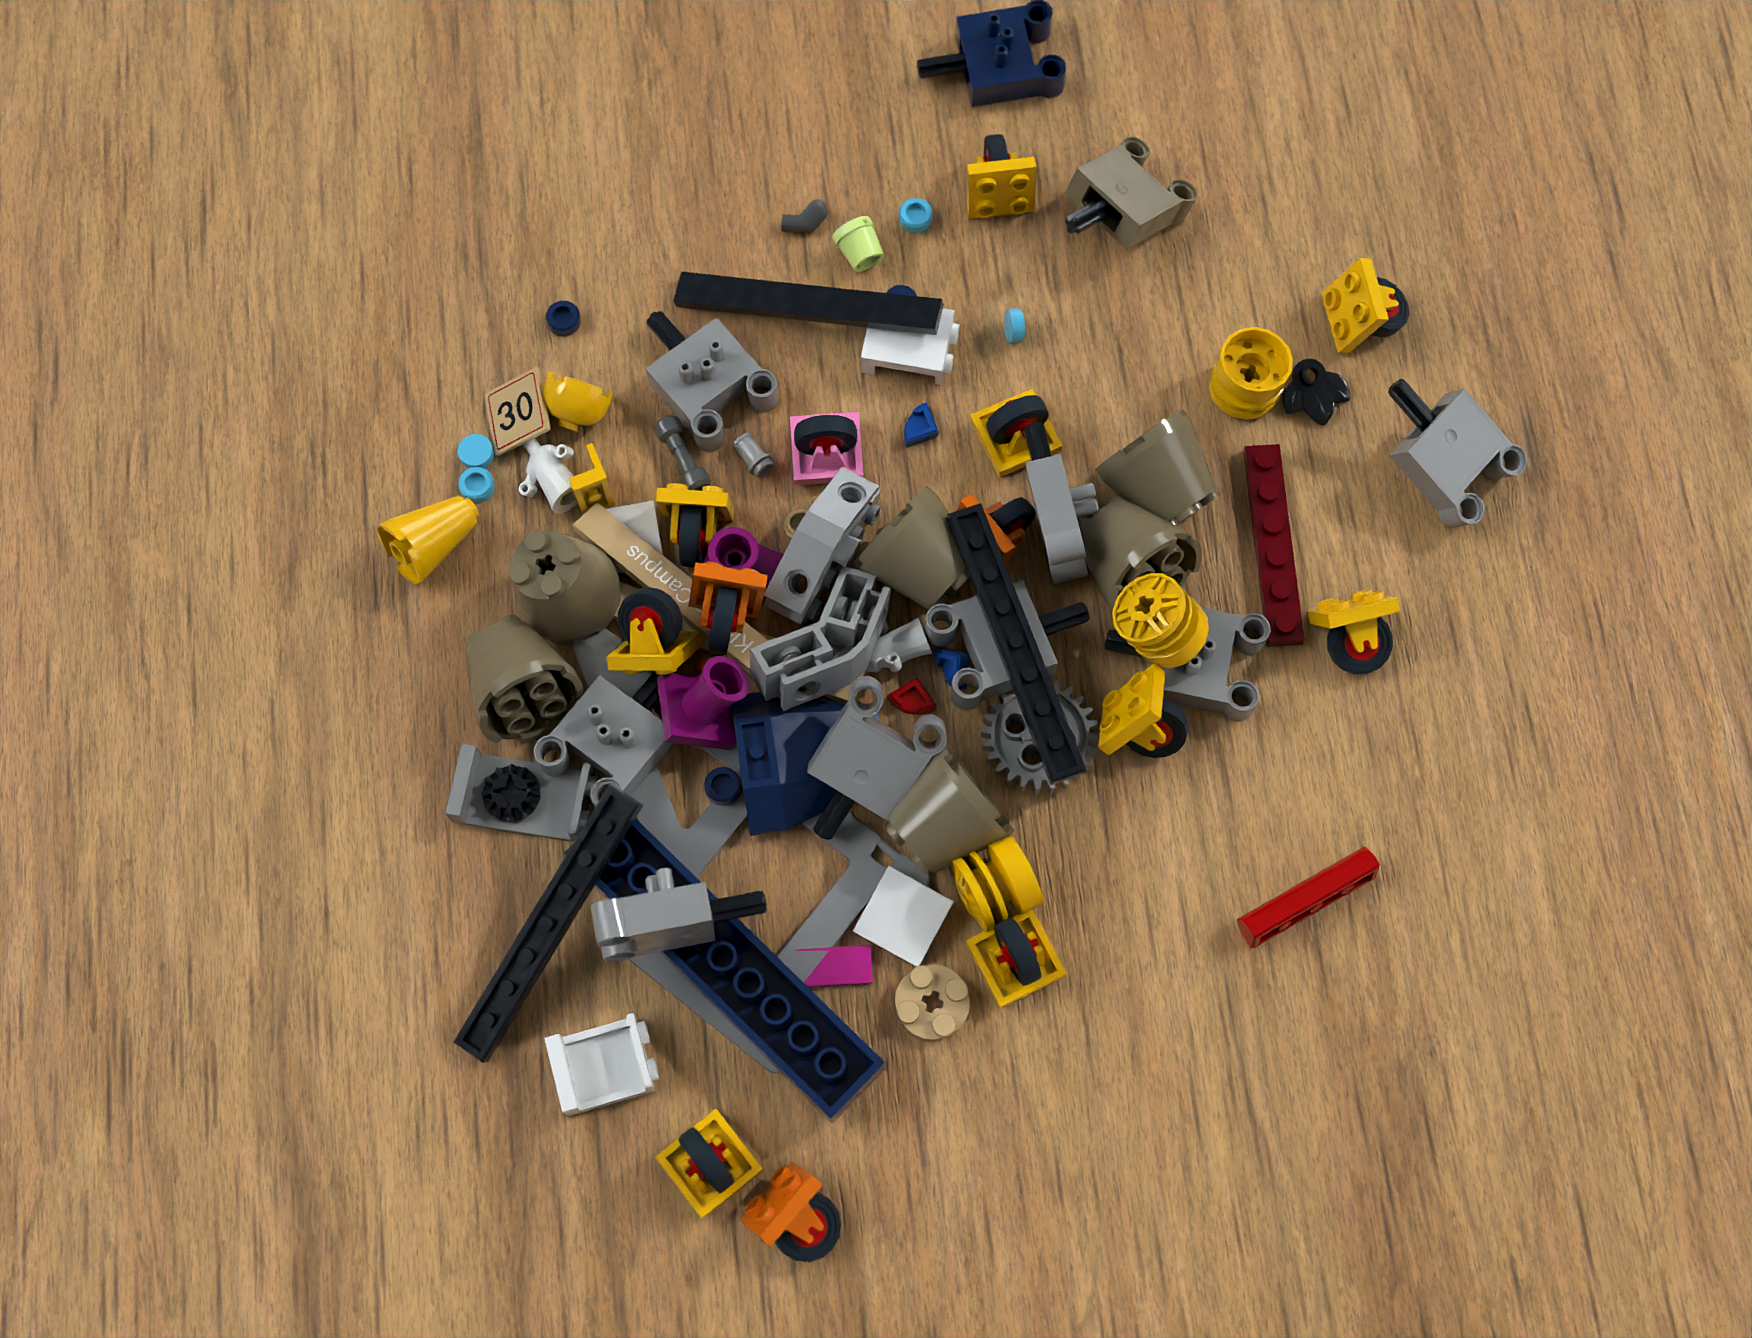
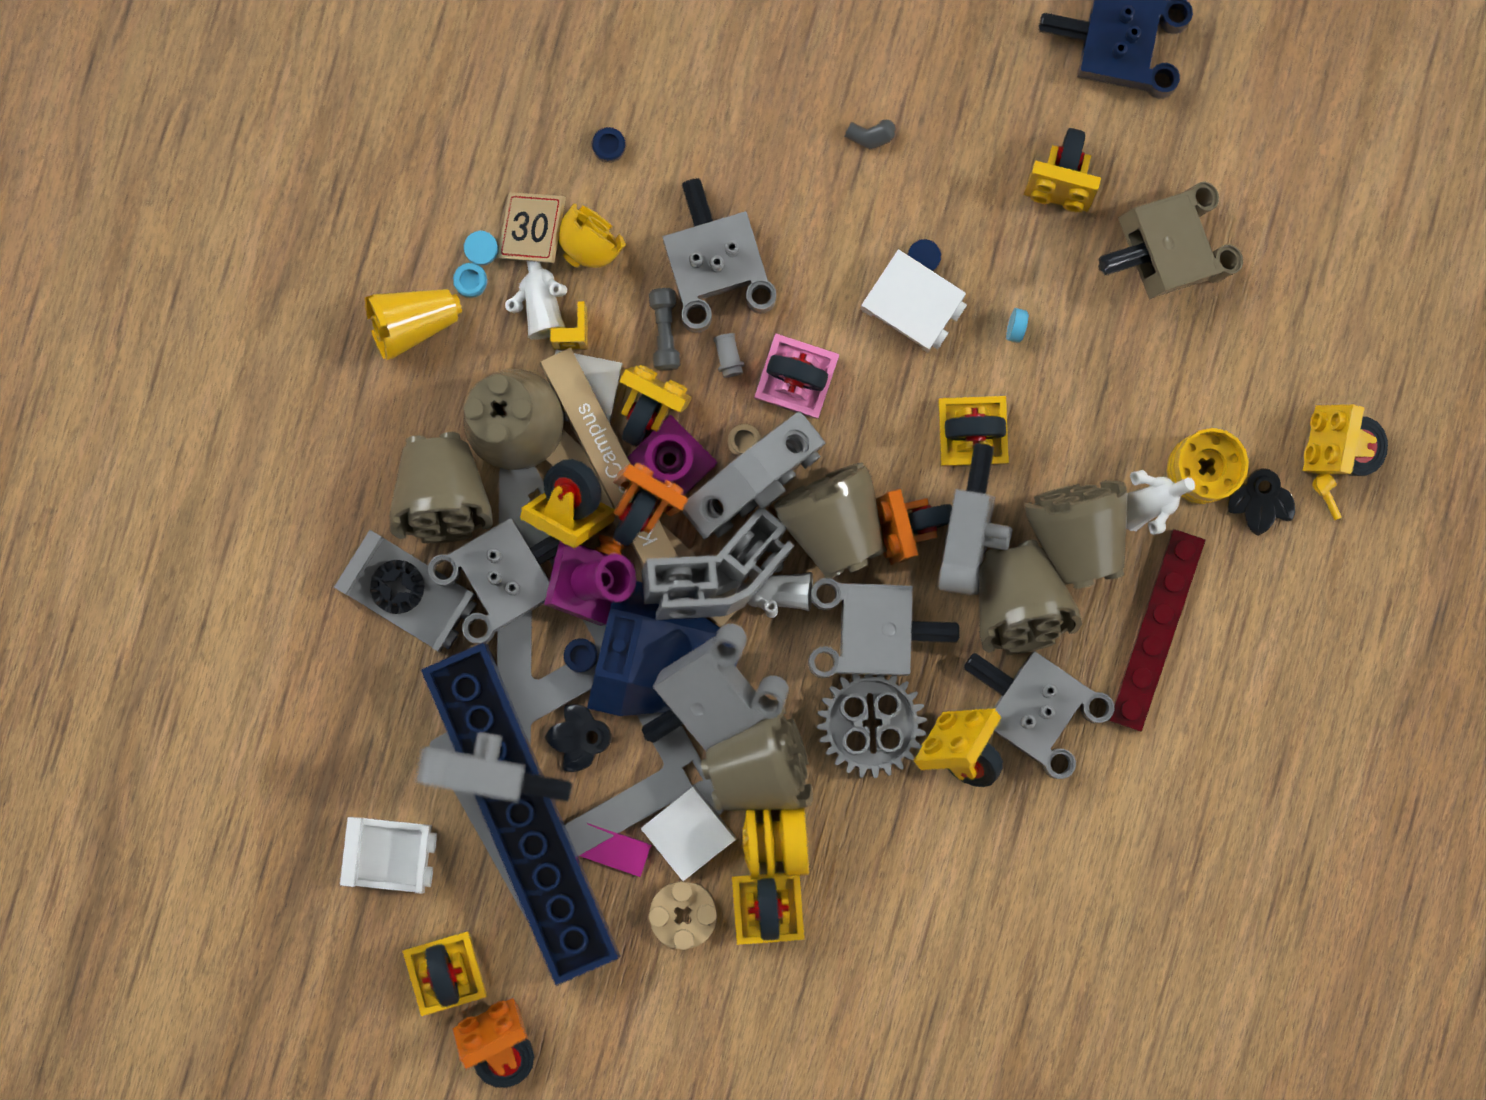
camera: 20 degrees right, 15 degrees up
(548, 923) = (387, 722): black tile -> none
(747, 866) = (573, 738): none -> black plate
(809, 303) = (836, 229): black tile -> none
(859, 243) = (909, 185): yellowish green piece -> none
(912, 698) = (777, 641): red tile -> none
(915, 215) = (975, 171): medium azure tile -> none
(920, 426) = (890, 386): blue tile -> none
(951, 662) = (825, 628): blue tile -> none
(1016, 644) = (880, 643): black tile -> none
(1160, 620) = (1014, 676): yellow wheel -> none
(1220, 418) = (1153, 501): none -> white piece
(1308, 897) = (1038, 957): red brick -> none
(1357, 634) = (1190, 741): plate -> none
(1363, 357) = (1322, 485): none -> yellow hand
(1450, 450) = (1350, 617): light grey piece -> none

